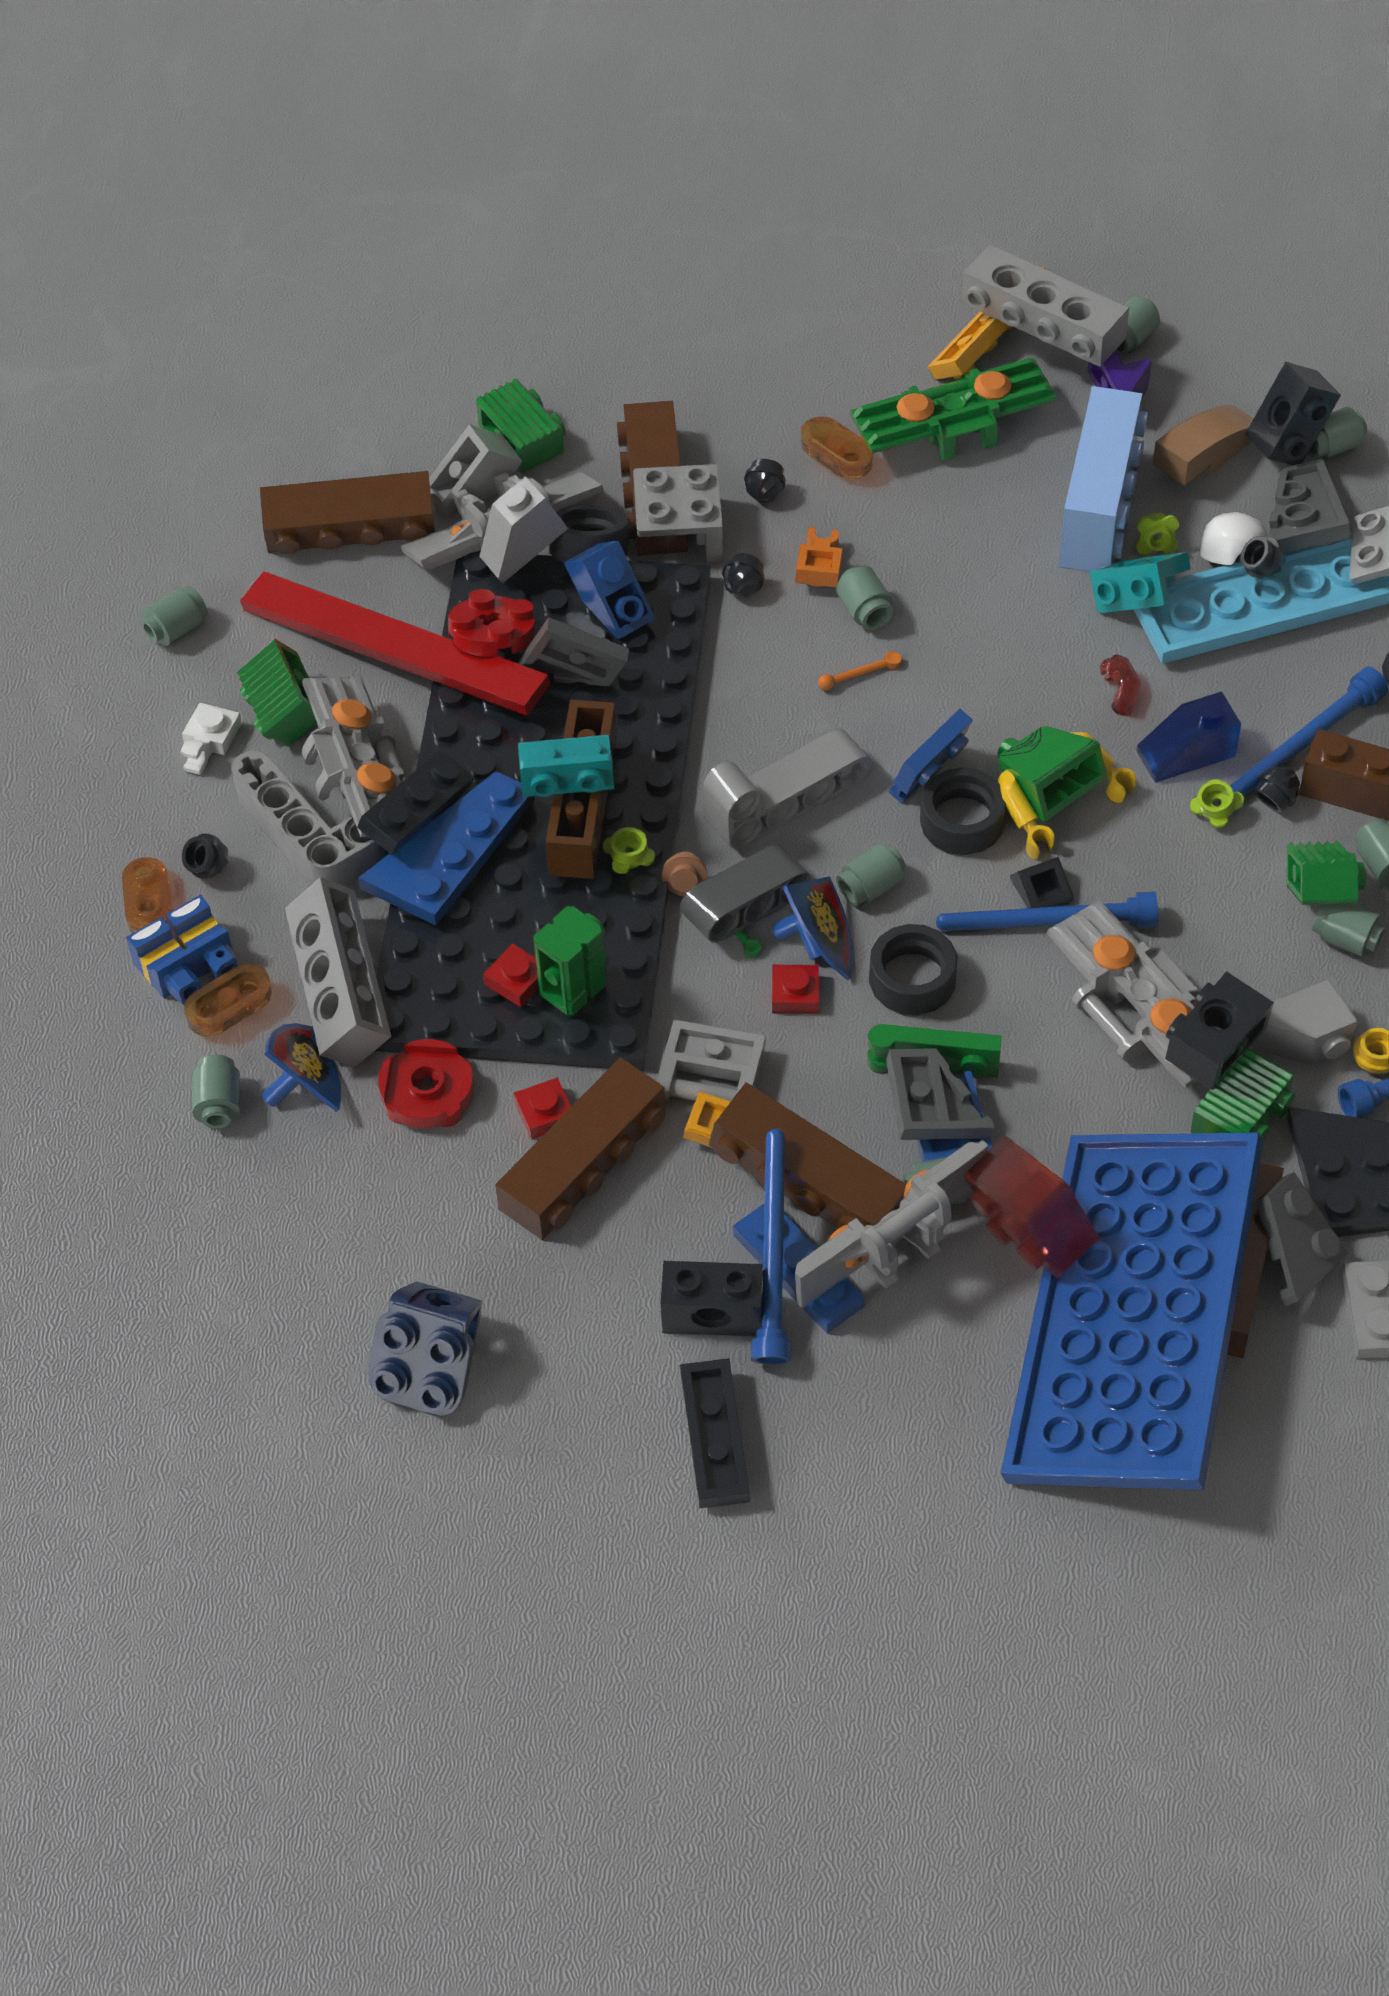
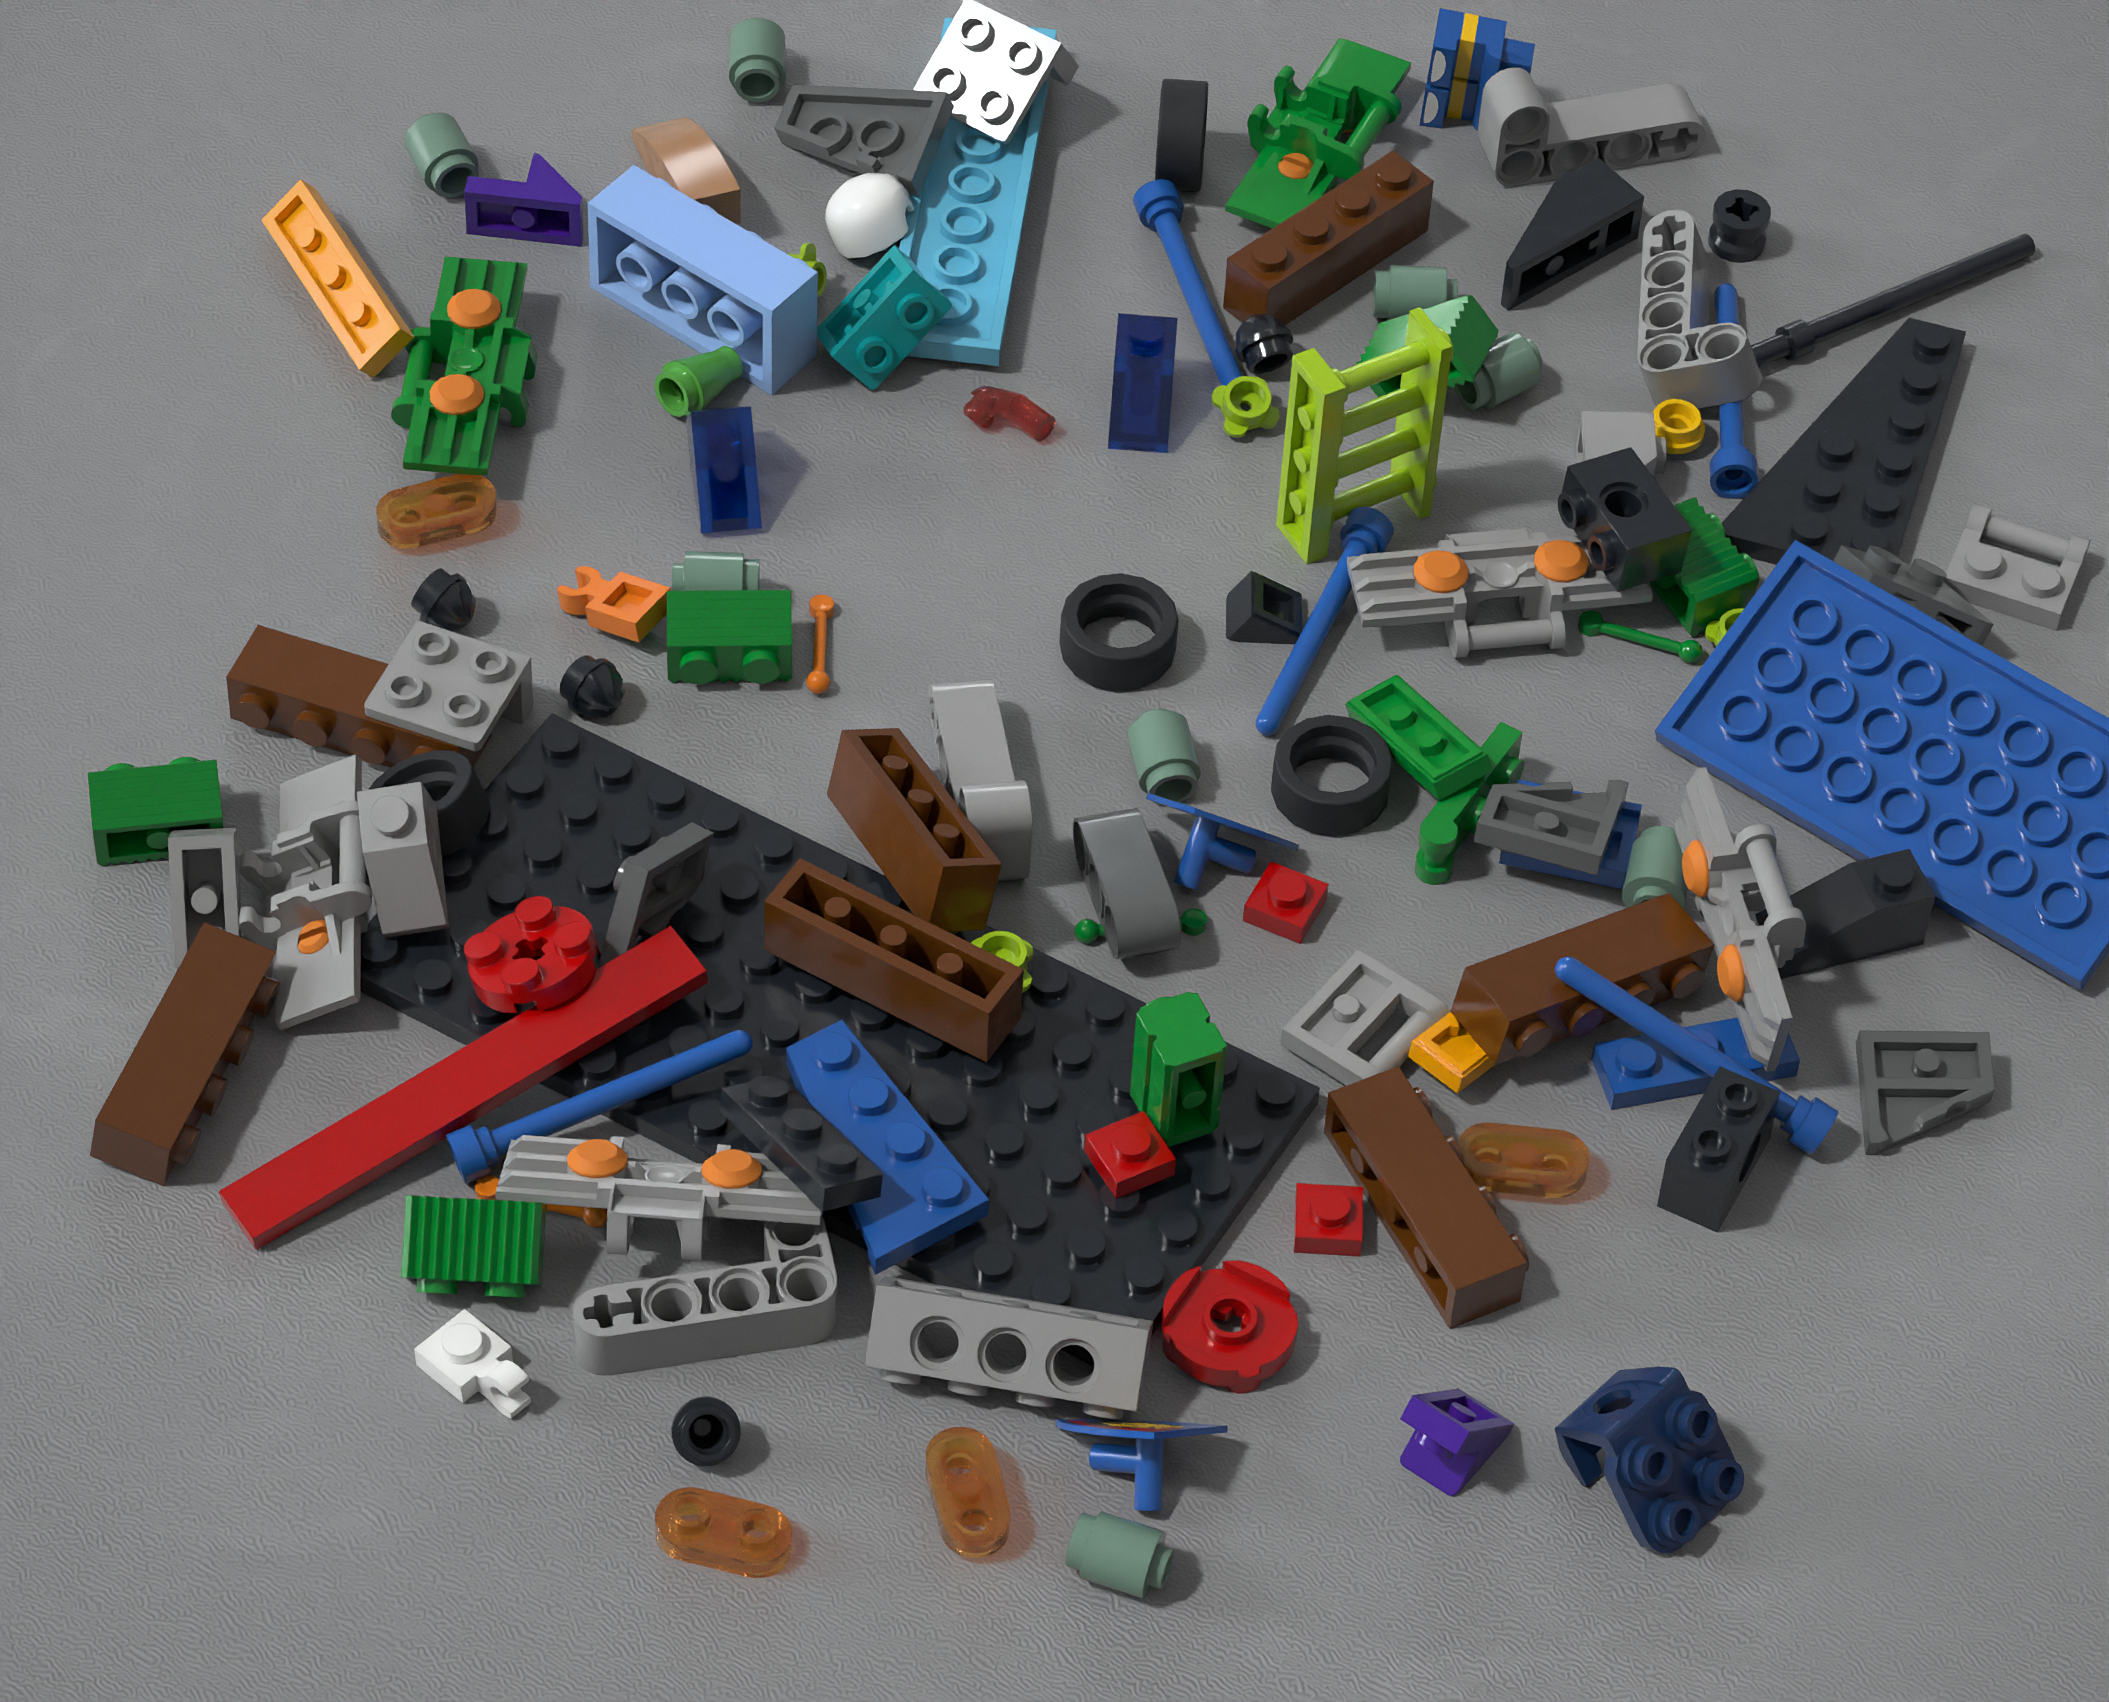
camera: 70 degrees left, 5 degrees down
(173, 615) = (232, 1322): sand green brick -> none
(183, 950) = (853, 1515): blue hips -> none
(355, 664) = (479, 1149): none -> blue piece
(397, 1230) = (1451, 1437): none -> dark purple slope
(566, 766) = (889, 939): teal bracket -> none
(610, 588) = (550, 810): blue slope -> none
(647, 1196) = (1522, 1159): none -> clear orange plate
(679, 772) = (913, 829): none -> reddish brown brick
(683, 872) = (1053, 931): nougat plate -> none
(714, 1433) = (1899, 1224): black plate -> none
(825, 620) = (729, 636): none -> green brick
(849, 1403) = (1919, 1081): none -> dark grey wing
(928, 758) = (1028, 619): blue plate -> none
(964, 559) = (724, 468): none -> clear blue slope
(965, 998) = (1420, 737): none -> green tile
(967, 1305) = (1861, 913): none -> black slope
(1029, 1208) = (1779, 779): clear red brick -> none
(1032, 521) = (696, 380): none -> bright green cone
(1045, 305) = (391, 197): light grey brick -> none
(1050, 773) = (1126, 527): green torso -> none
(1136, 847) = (1319, 423): none -> lime fence
(1161, 1074) = (1592, 624): none -> green hinge
(1262, 557) = (934, 191): black plate -> none
(1292, 414) = (720, 98): black brick -> none

